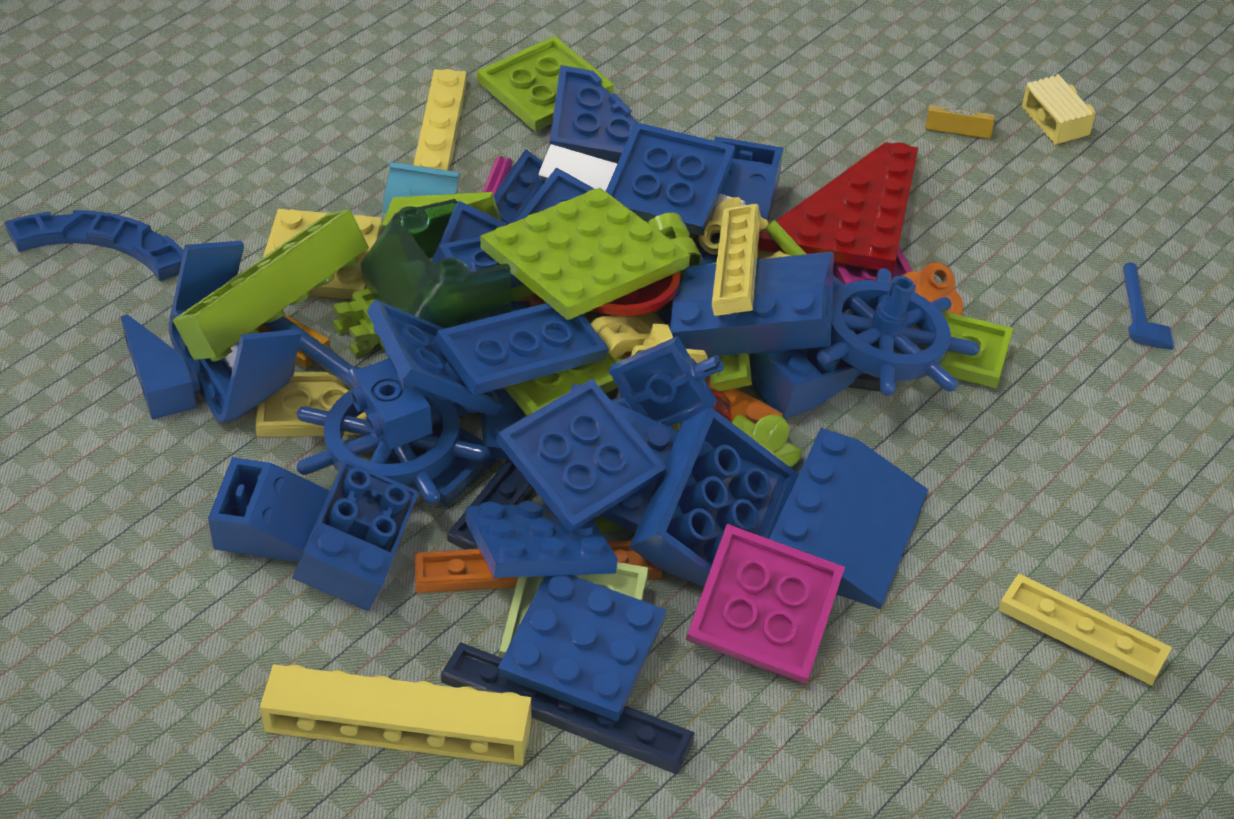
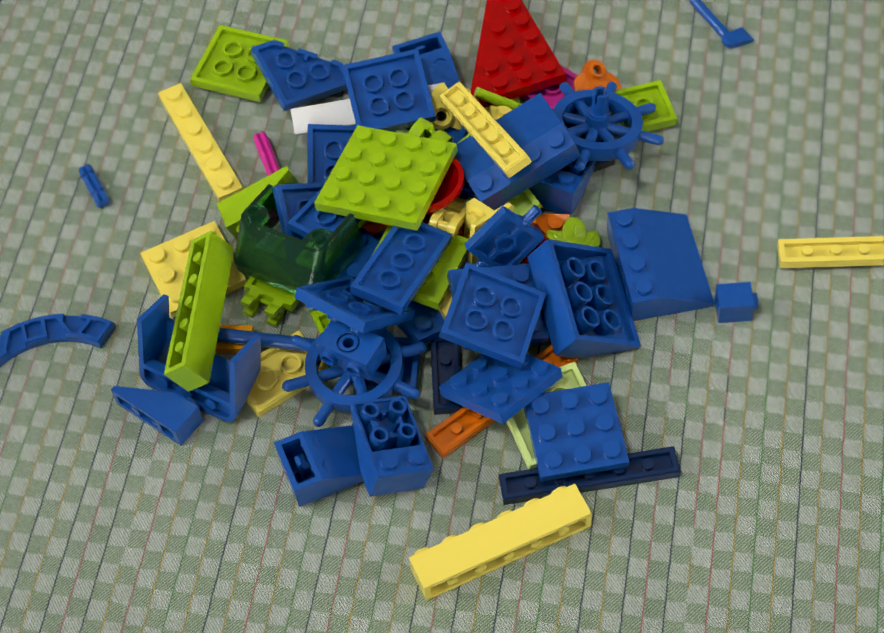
camera: 25 degrees left, 10 degrees up
(291, 124) = (94, 186): none -> blue axle
(413, 180) = (223, 185): medium azure plate -> none
(519, 187) = (287, 149): blue tile -> none
(765, 604) = (658, 343): dark pink plate -> none
(905, 614) = (735, 302): none -> blue brick

